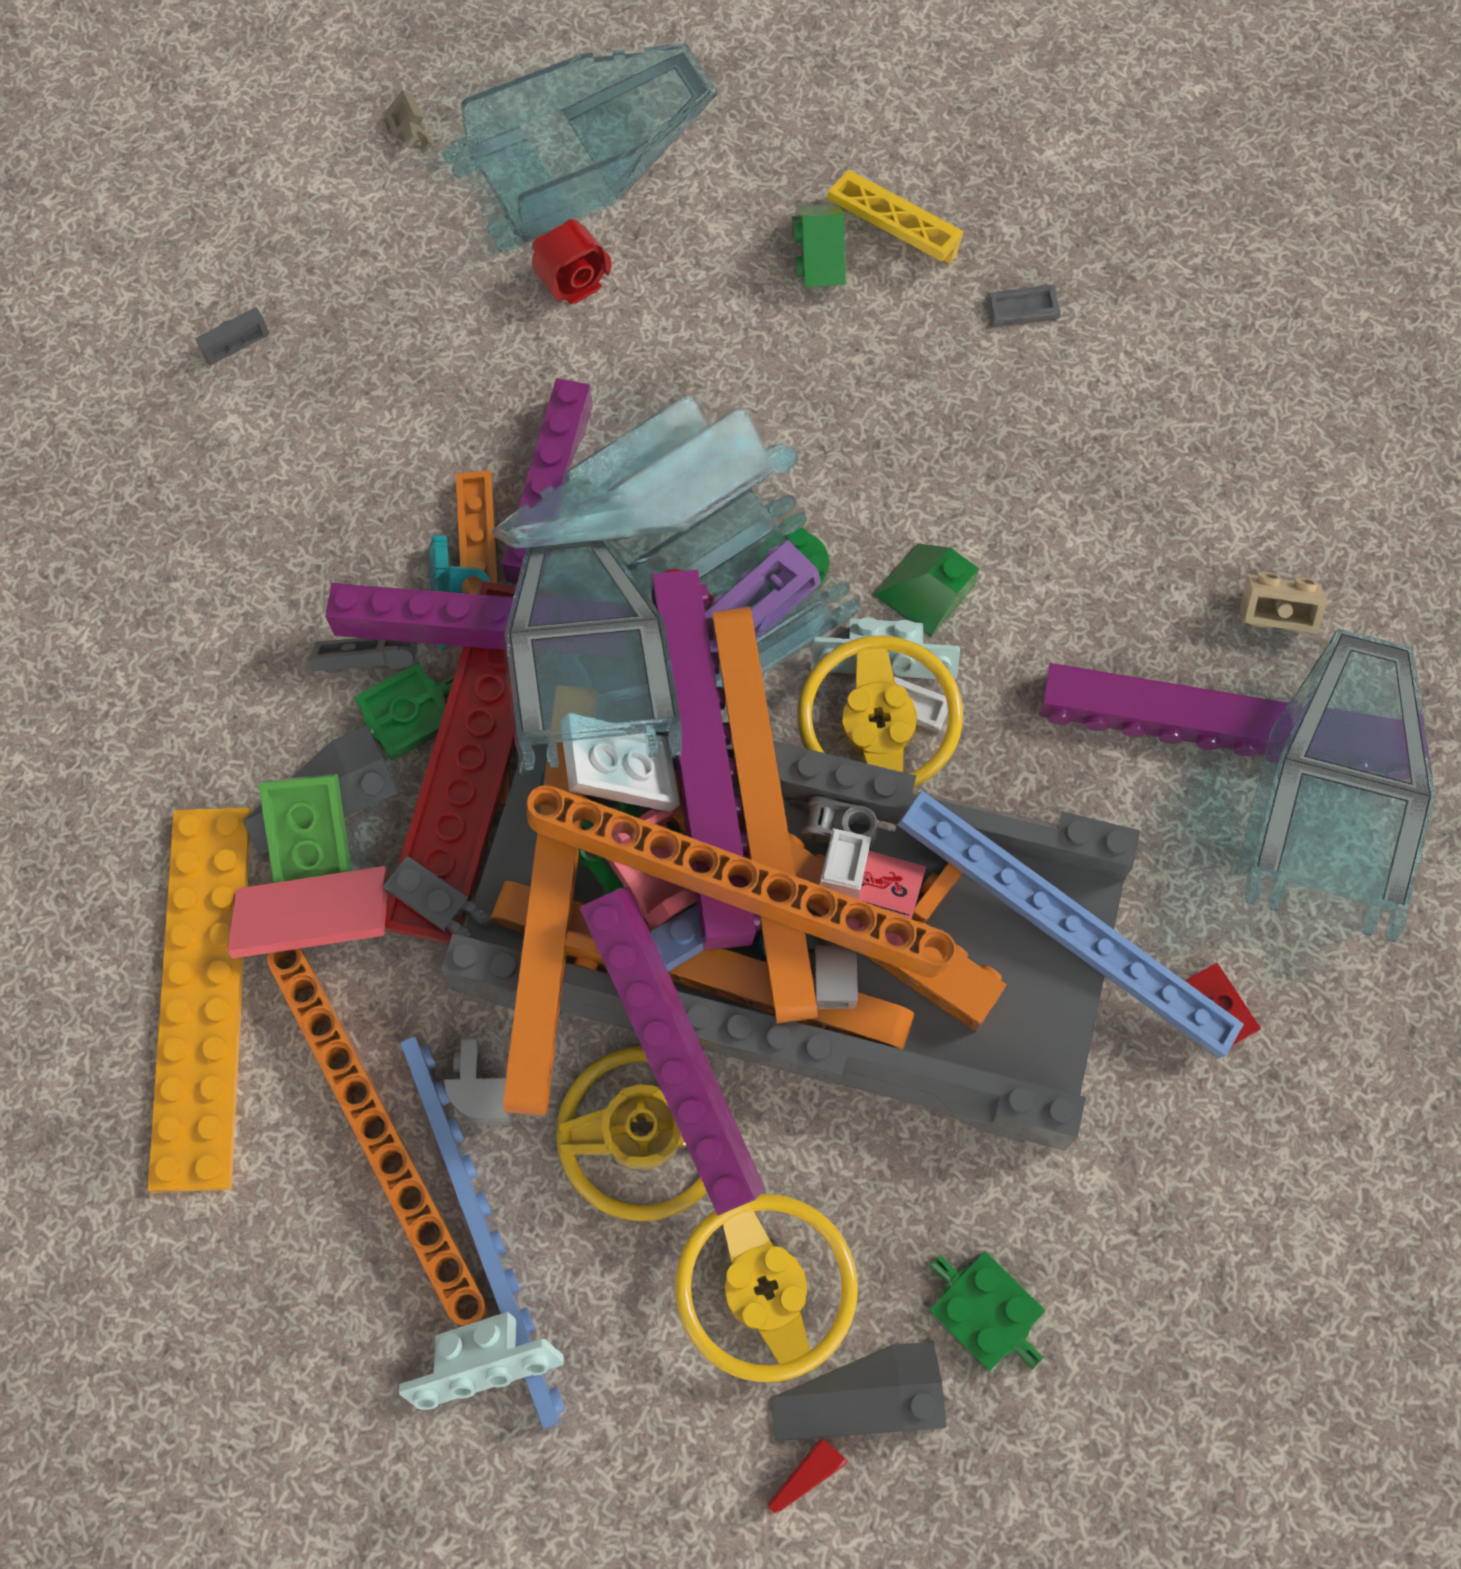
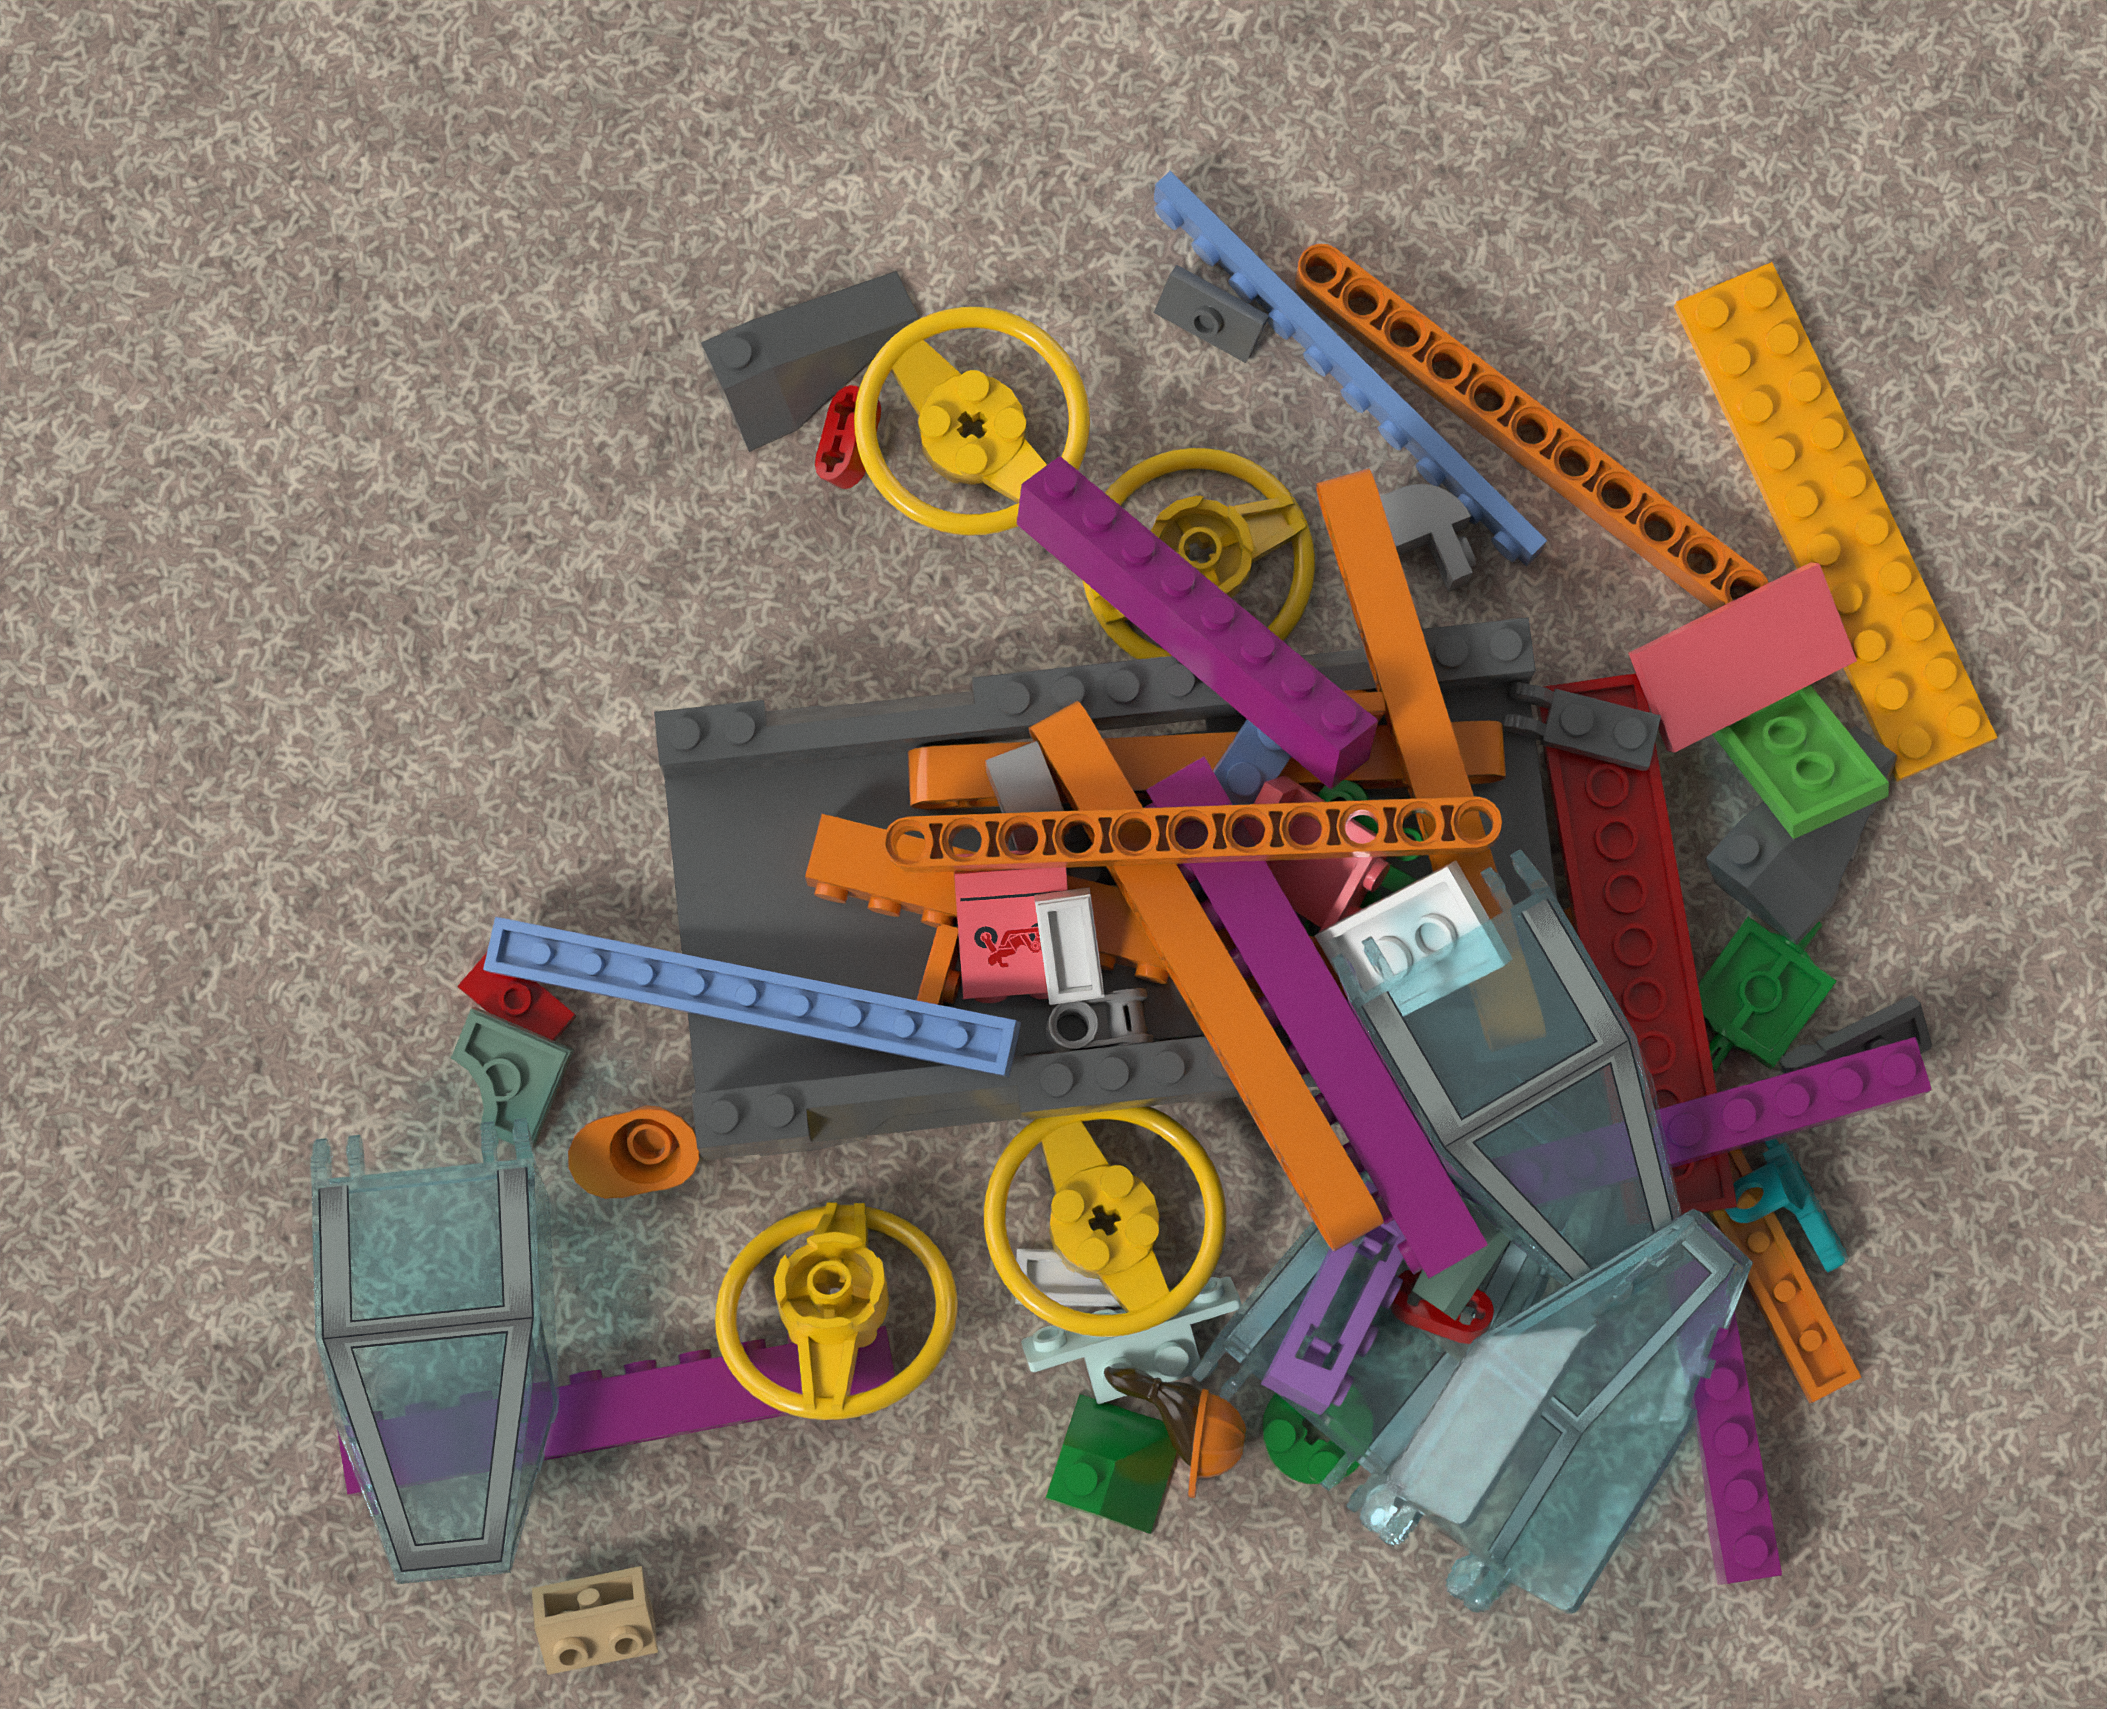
camera: 155 degrees right, 10 degrees up
(479, 1359) = (1281, 216): light aqua bracket -> none
(559, 1309) = (1211, 314): none -> dark grey plate
(815, 1468) = (838, 253): red slope -> none
(866, 1318) = (839, 441): none -> red beam
(869, 578) = (1200, 1424): none -> piece
(986, 1311) = (697, 507): green plate -> none
(1085, 695) = (836, 1324): none -> yellow piece
(1168, 870) = (633, 1153): none -> orange piece
(1238, 956) = (513, 1070): none -> sand green tile

